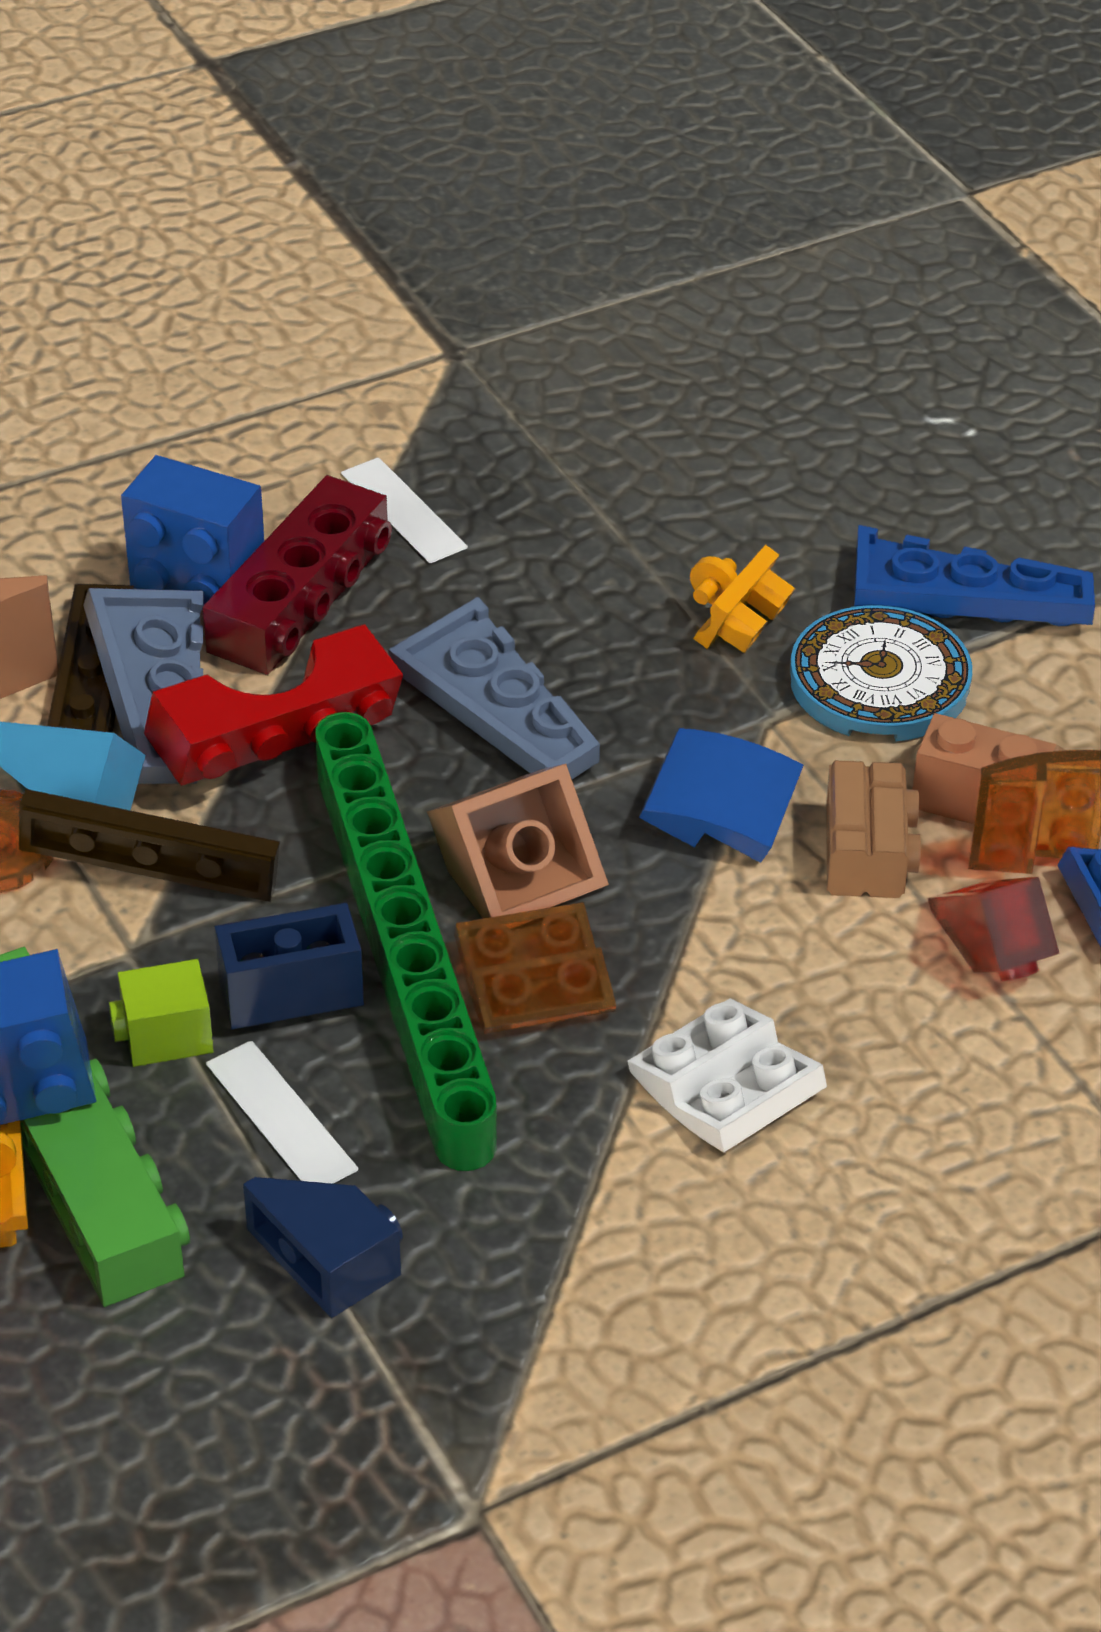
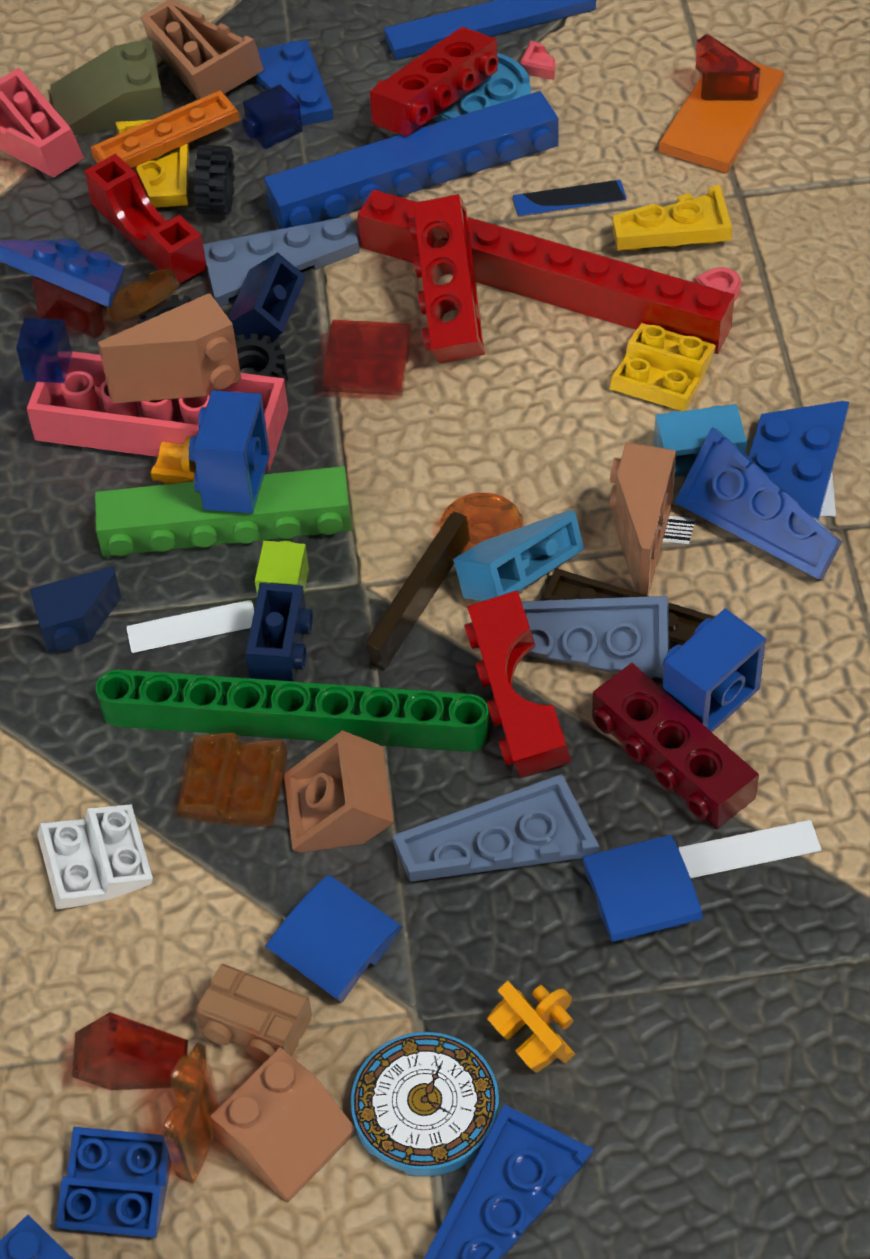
camera: 115 degrees right, 10 degrees up
(513, 558) = (642, 888): none -> blue slope

